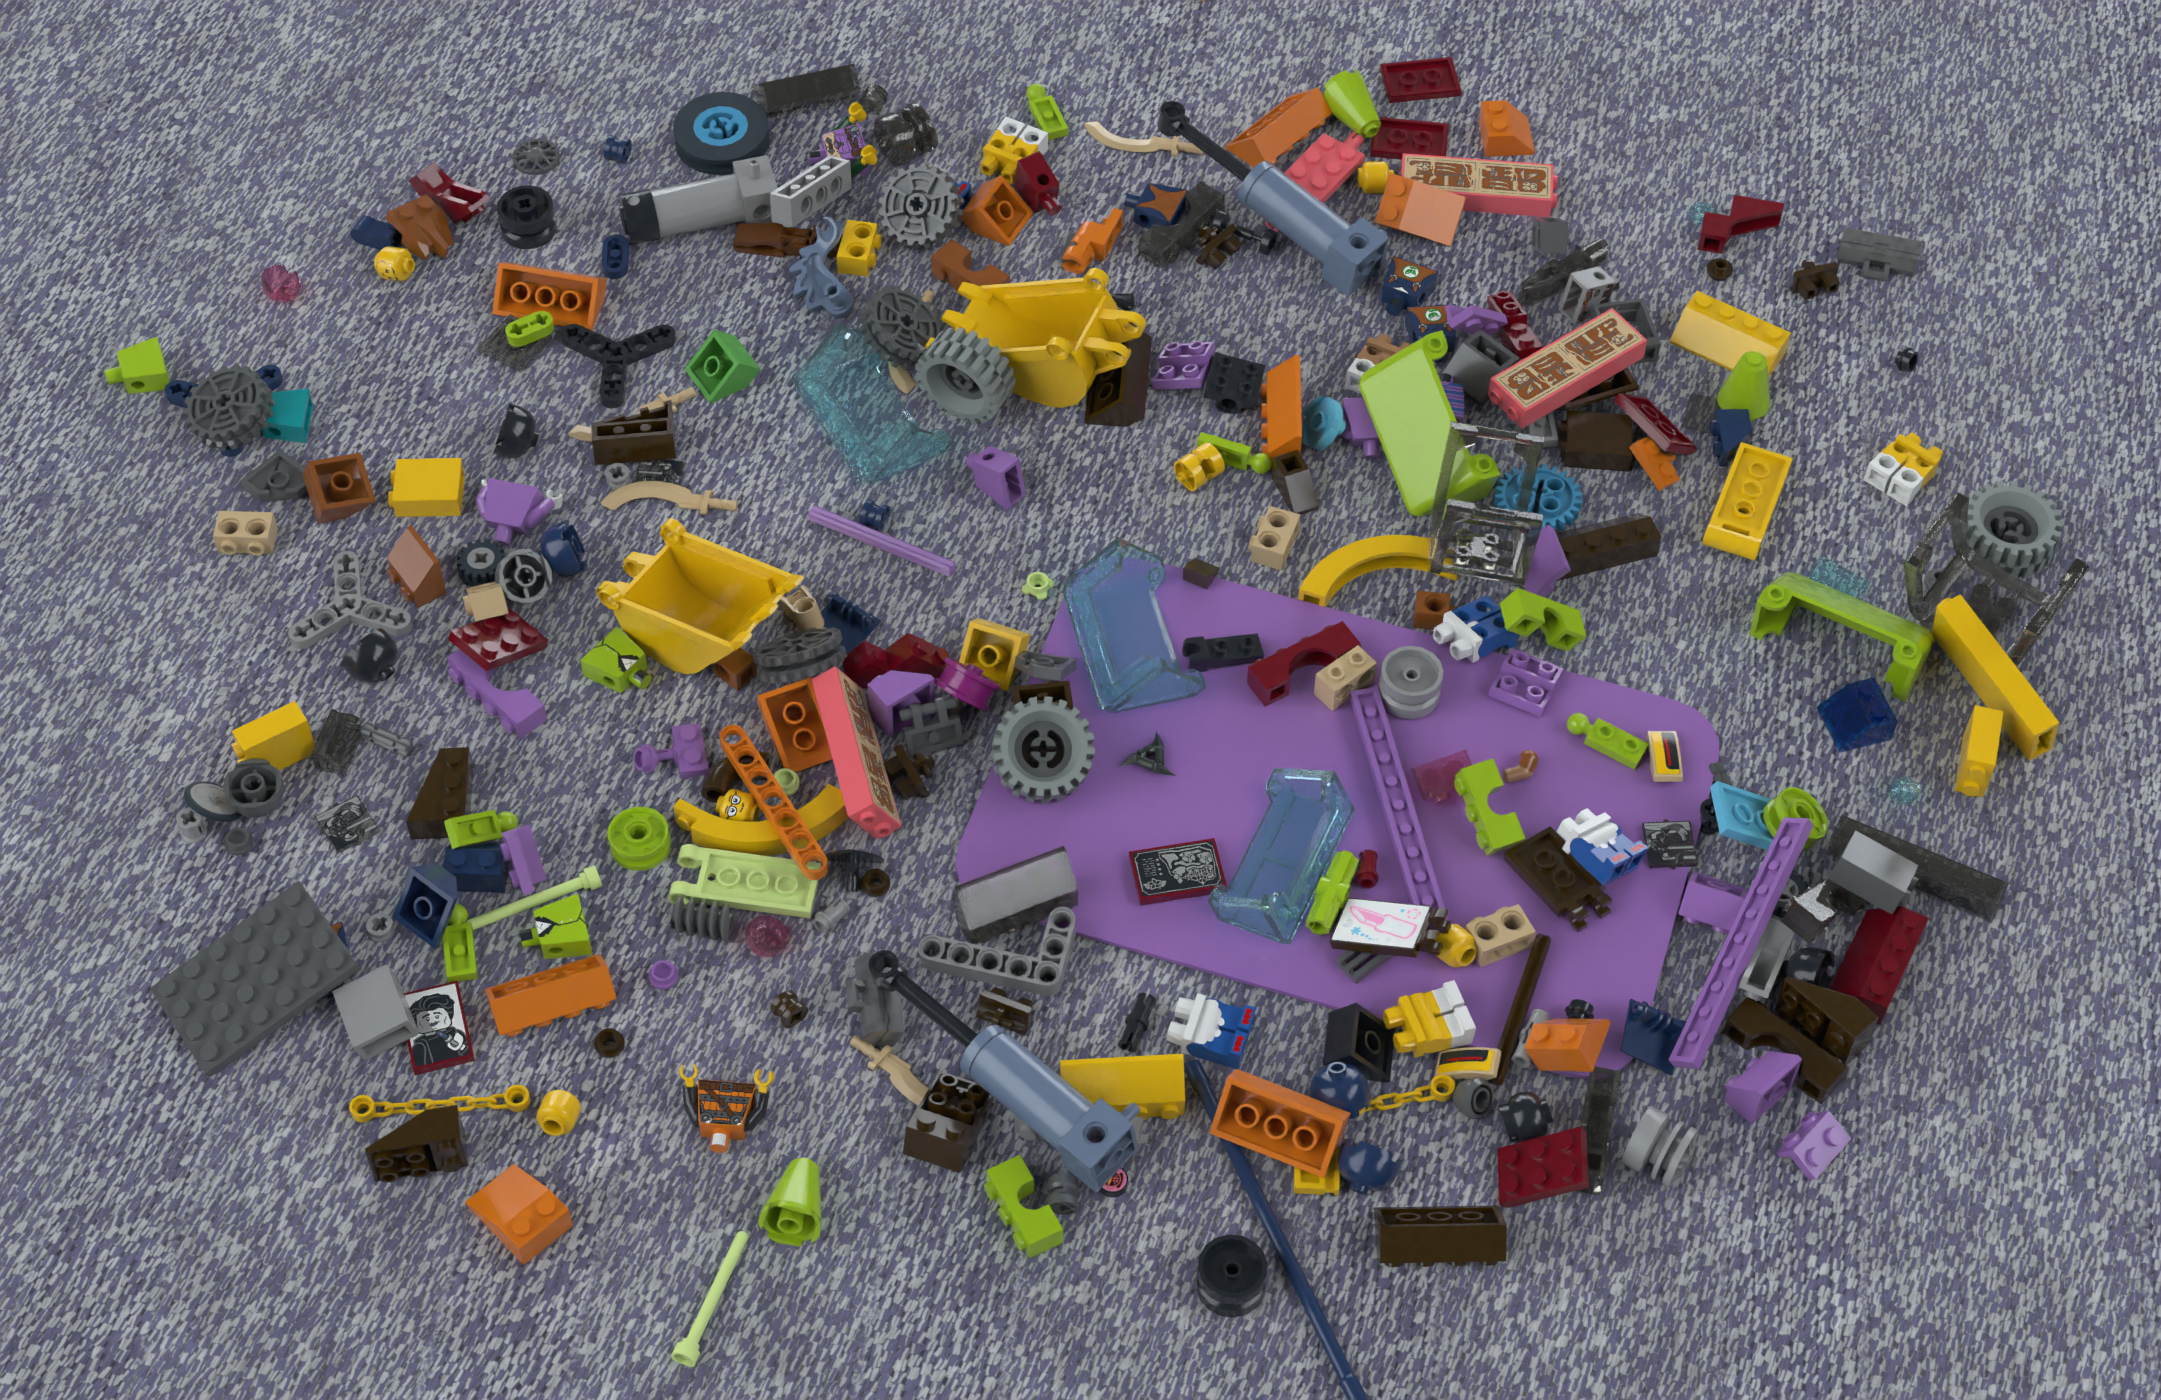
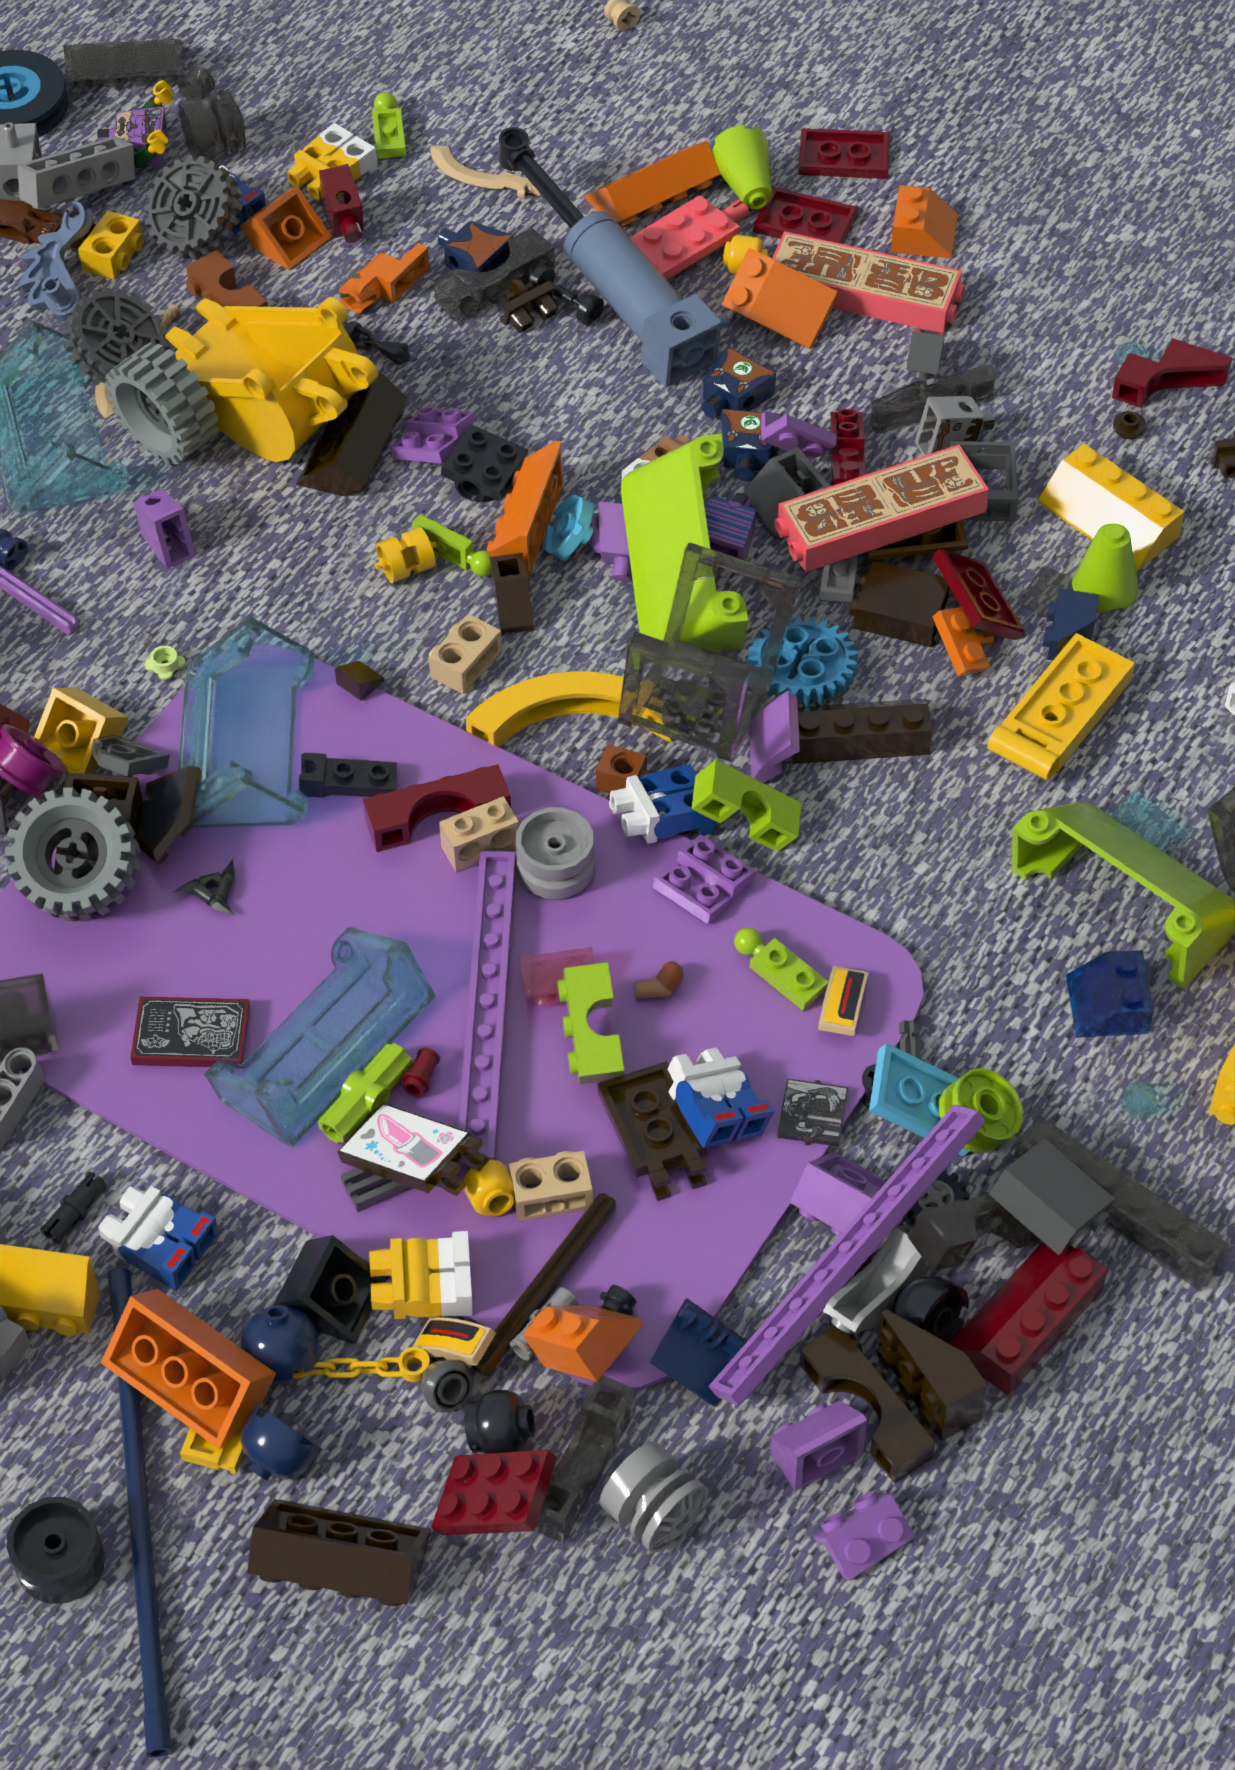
camera: 15 degrees right, 0 degrees up
(1099, 701) = (167, 811): none -> tile

